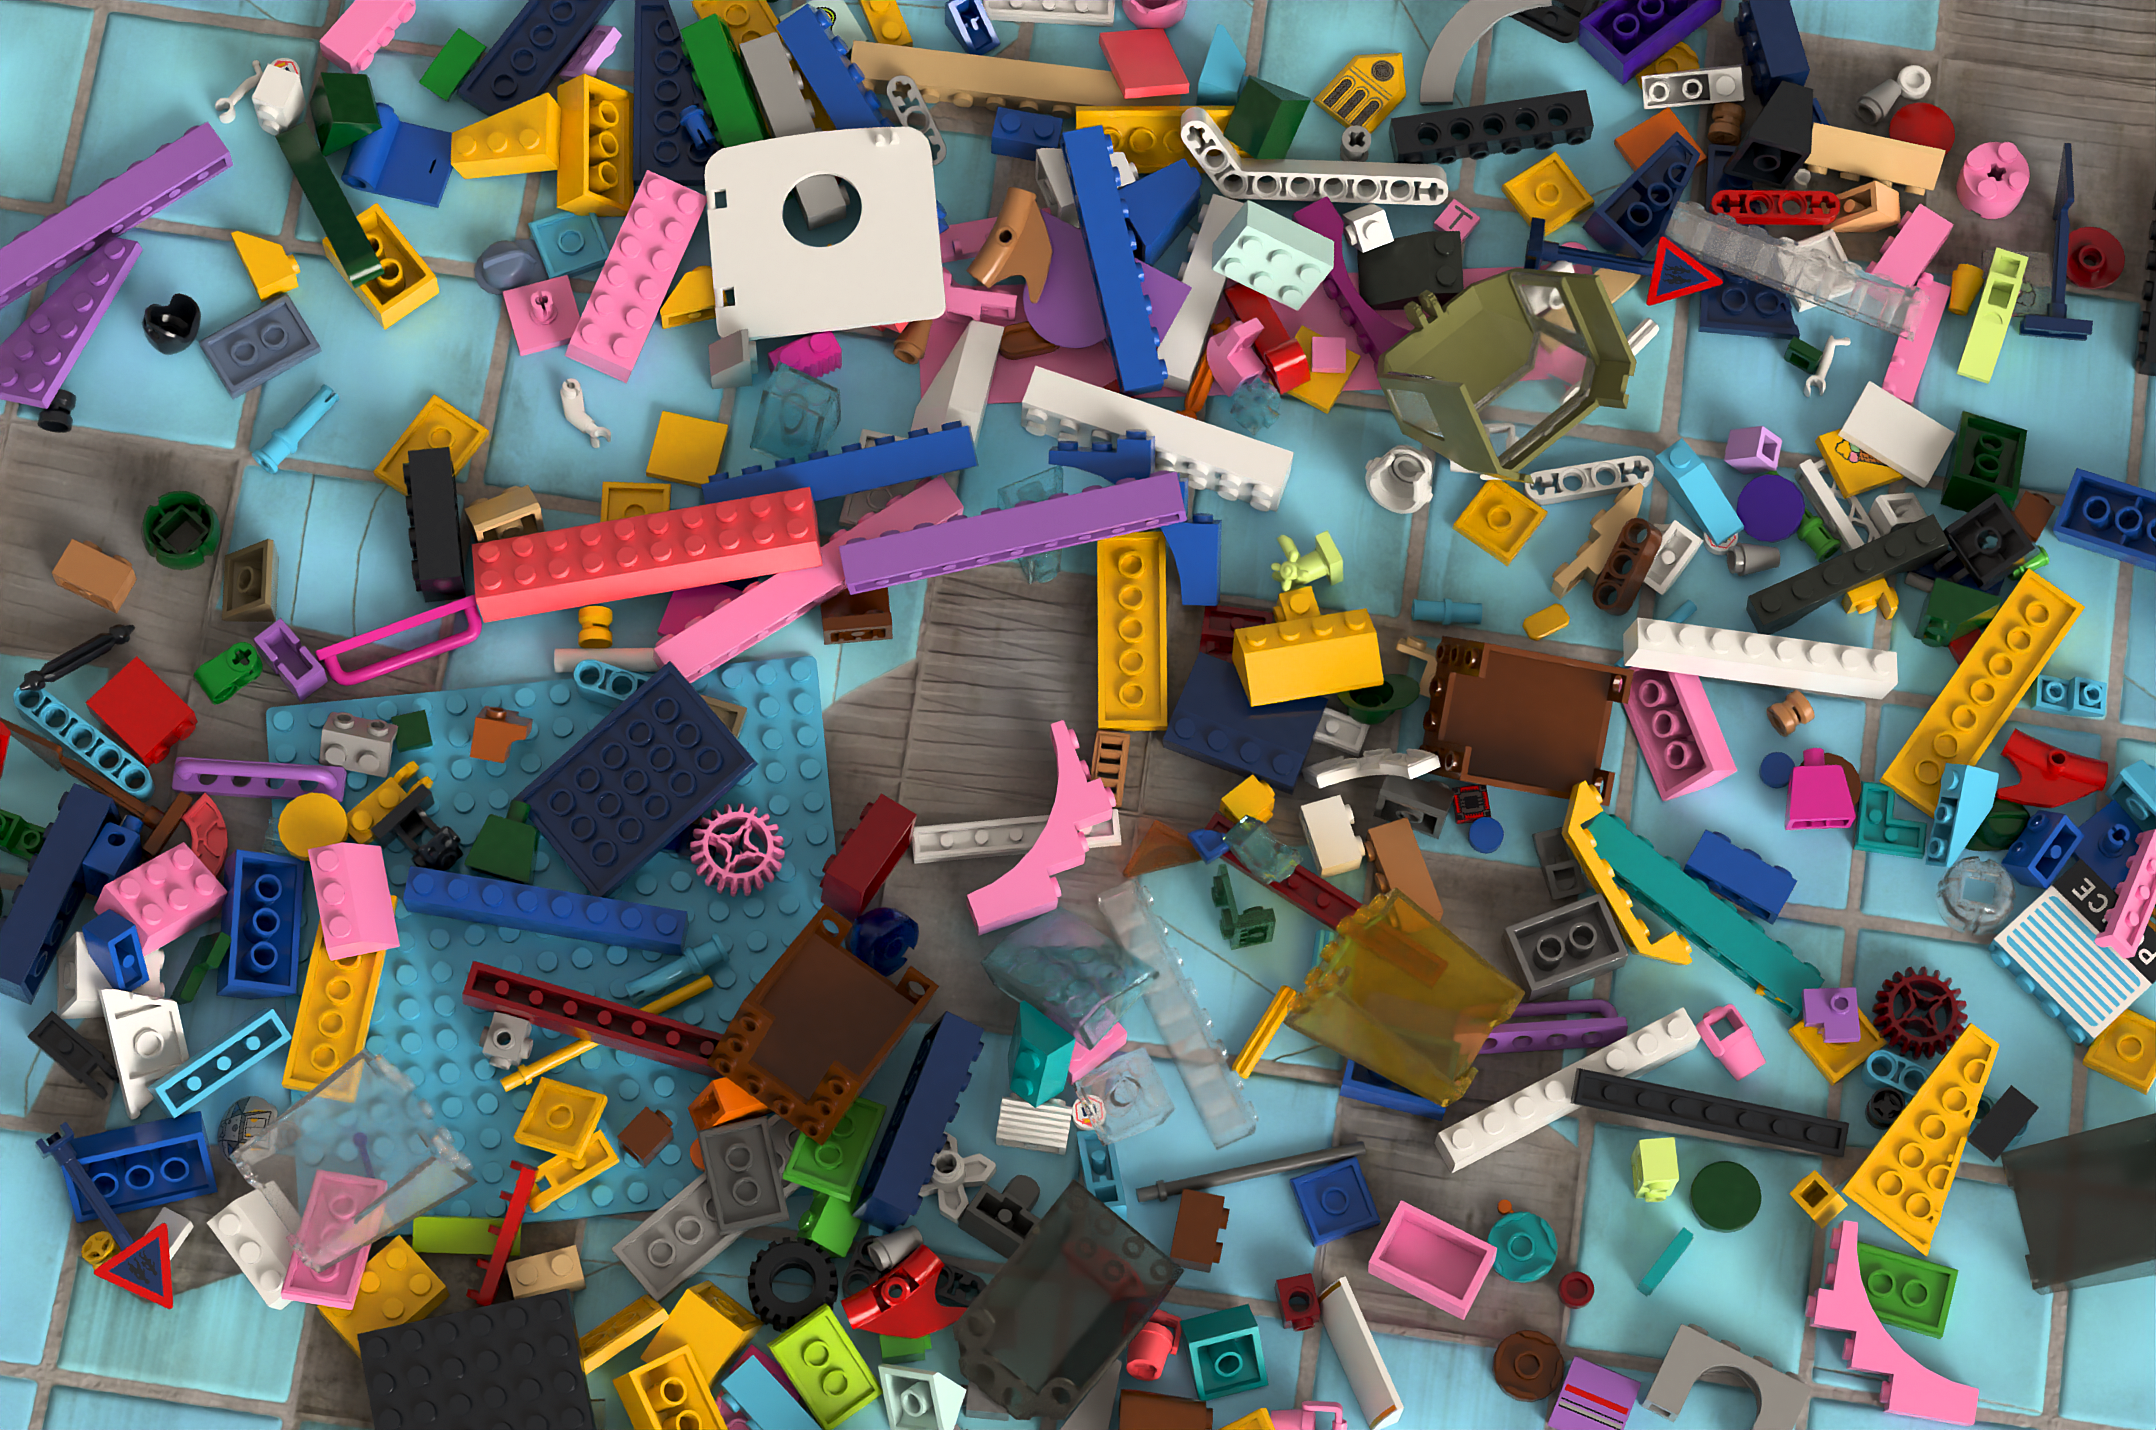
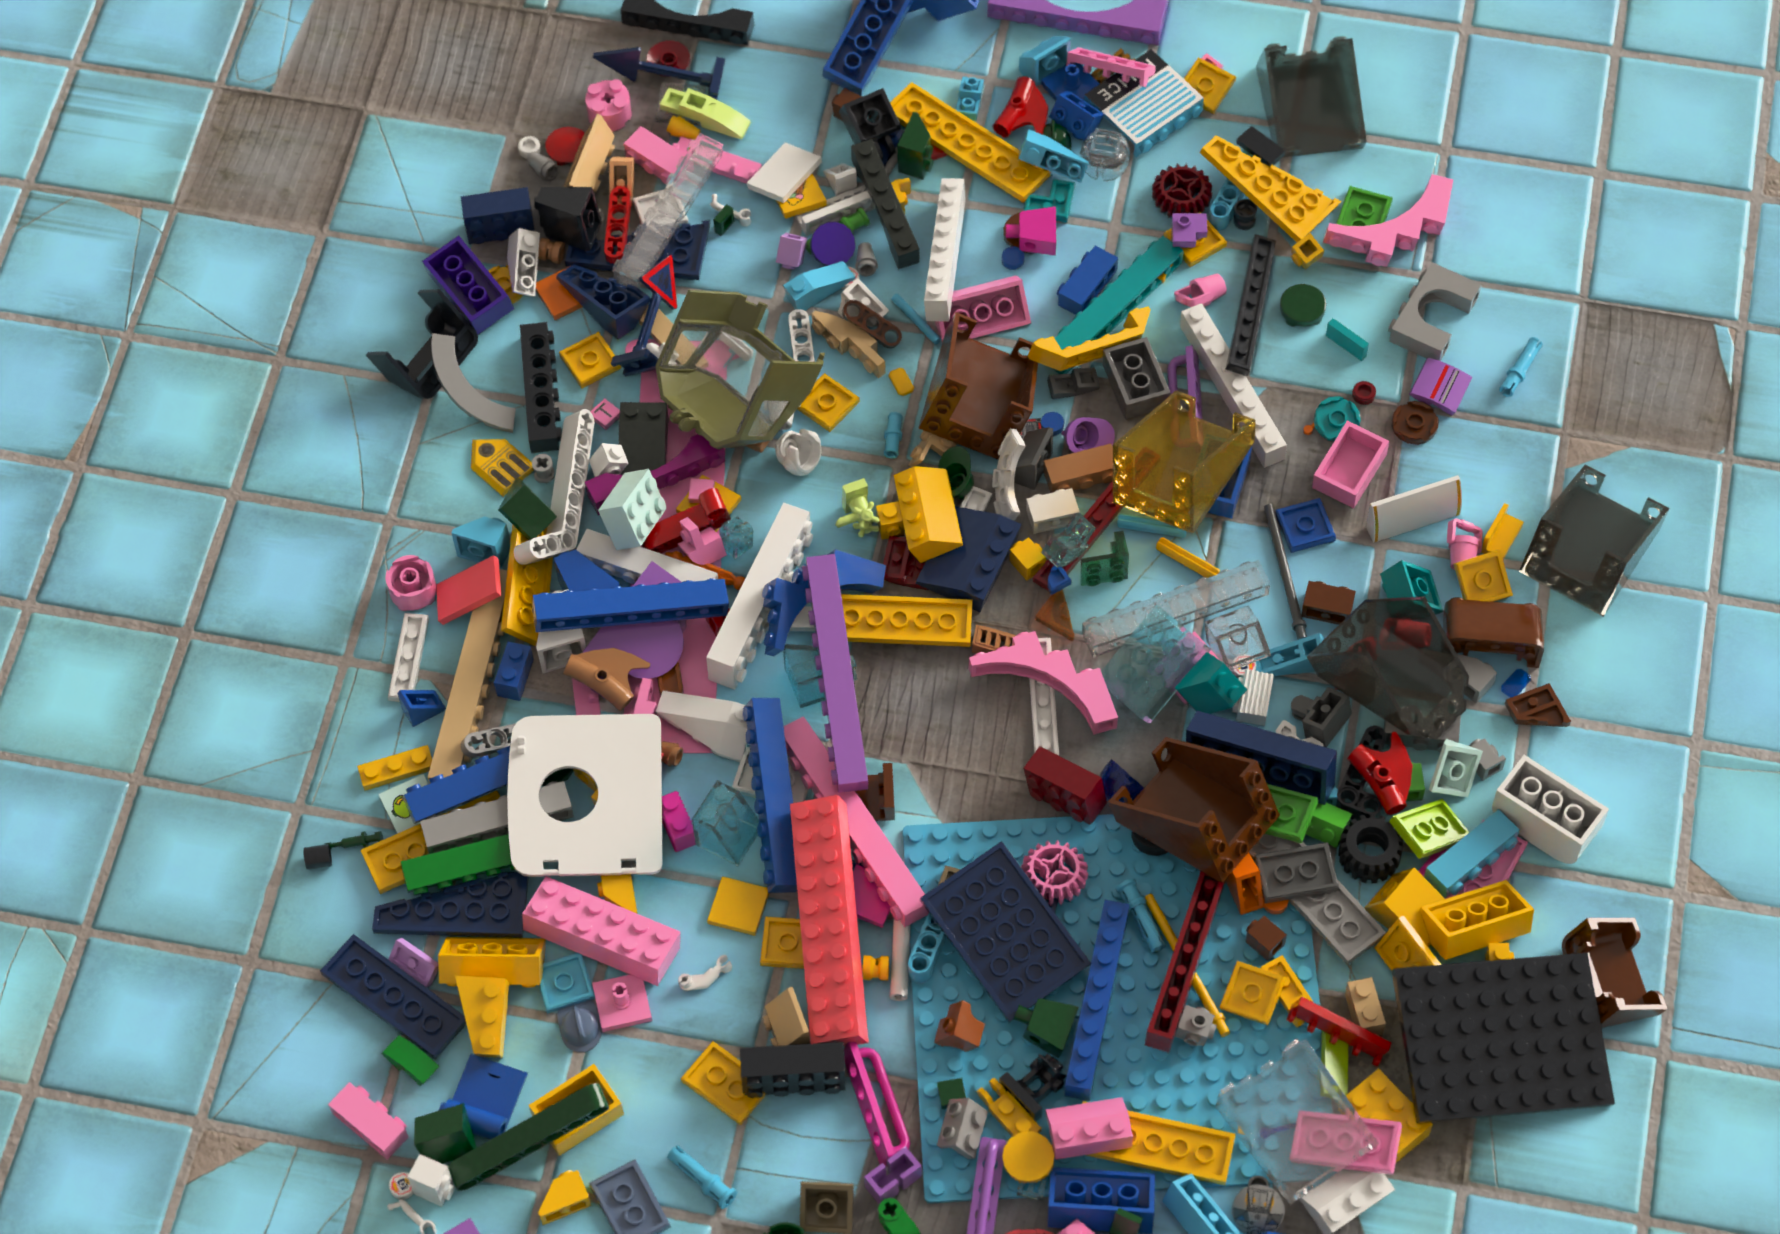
camera: 80 degrees left, 10 degrees down
(695, 124) = (485, 885): blue pin -> none
(733, 361) = (675, 866): light grey slope -> none
(894, 1247) = (1349, 777): light grey cone -> none
(1302, 1287) = (1375, 555): dark red brick -> none
(1459, 882) = (1088, 433): none -> medium lavender piece
(1654, 1168) = (1289, 336): yellowish green brick -> none
(1790, 713) = (977, 247): medium nougat wheel -> none
(1983, 462) = (810, 127): dark green slope -> none

